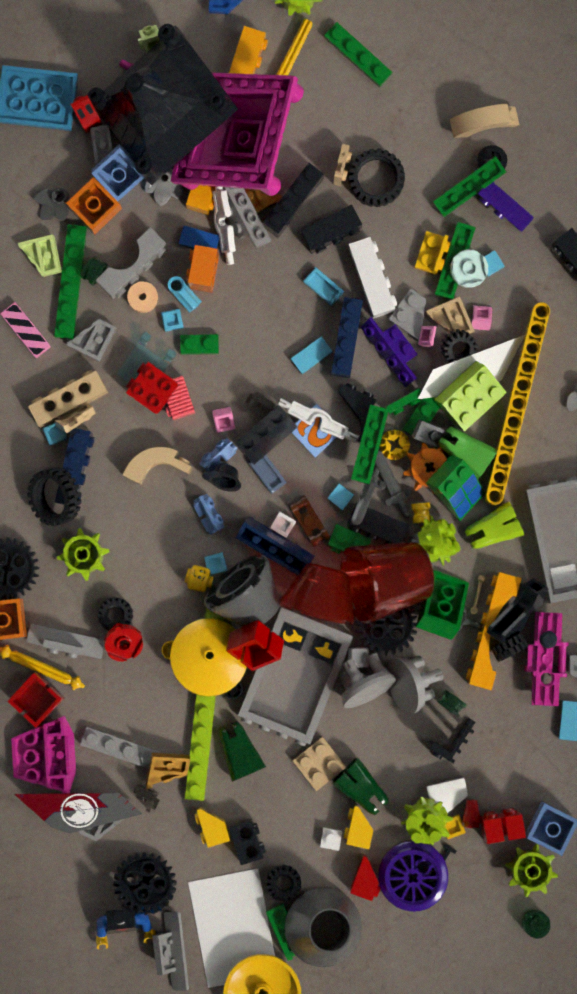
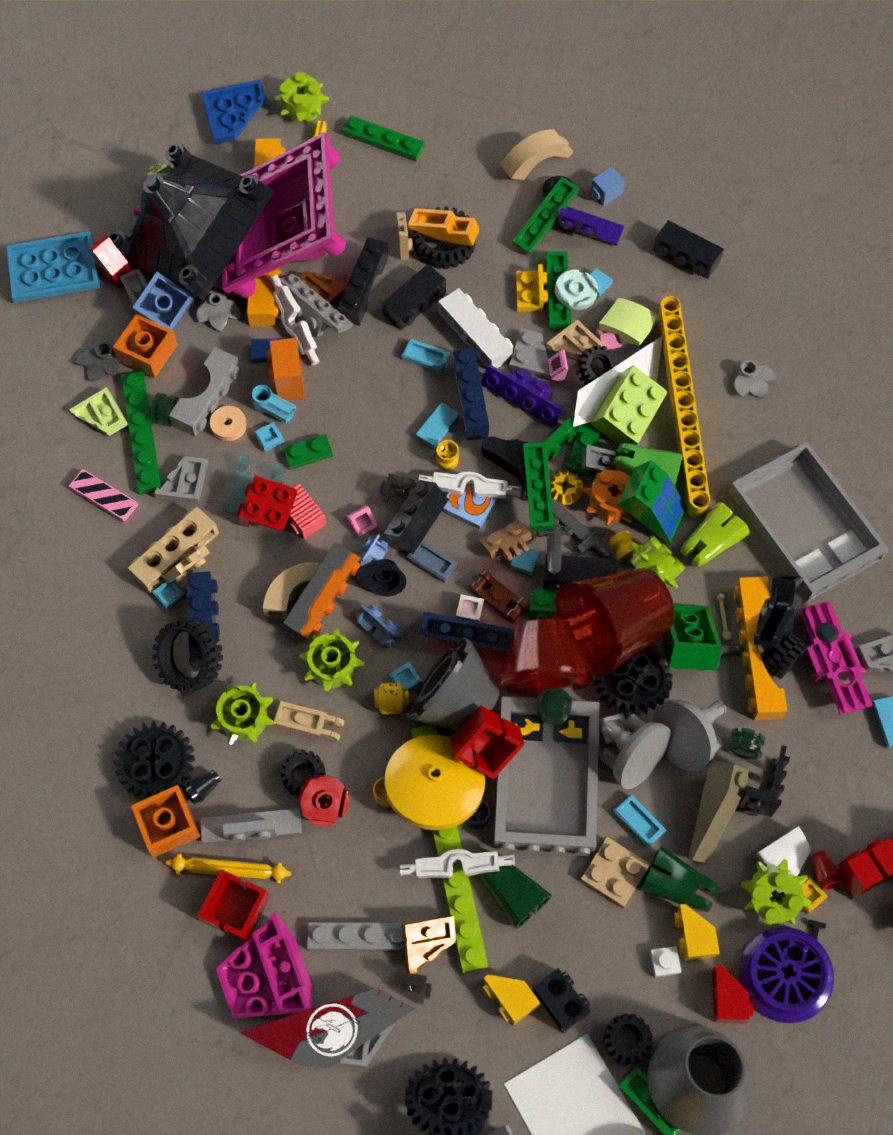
camera: 20 degrees left, 20 degrees down
(38, 599) = (201, 786): none -> black cone
(129, 573) = (306, 721): none -> tan hinge
(152, 530) = (336, 648): none -> lime brick
(172, 477) = (322, 590): none -> piece
(195, 720) = (443, 866): none -> white piece
(309, 383) = (446, 450): none -> yellow wheel
(316, 630) = (554, 706): none -> clear green wheel
(331, 477) = (507, 540): none -> medium nougat hinge
(351, 732) = (639, 821): none -> medium azure tile
(377, 172) = (444, 226): none -> light orange slope
(413, 740) = (719, 800): none -> dark tan wedge
(502, 312) = (629, 321): none -> yellowish green slope
(534, 172) = (607, 186): none -> medium blue brick

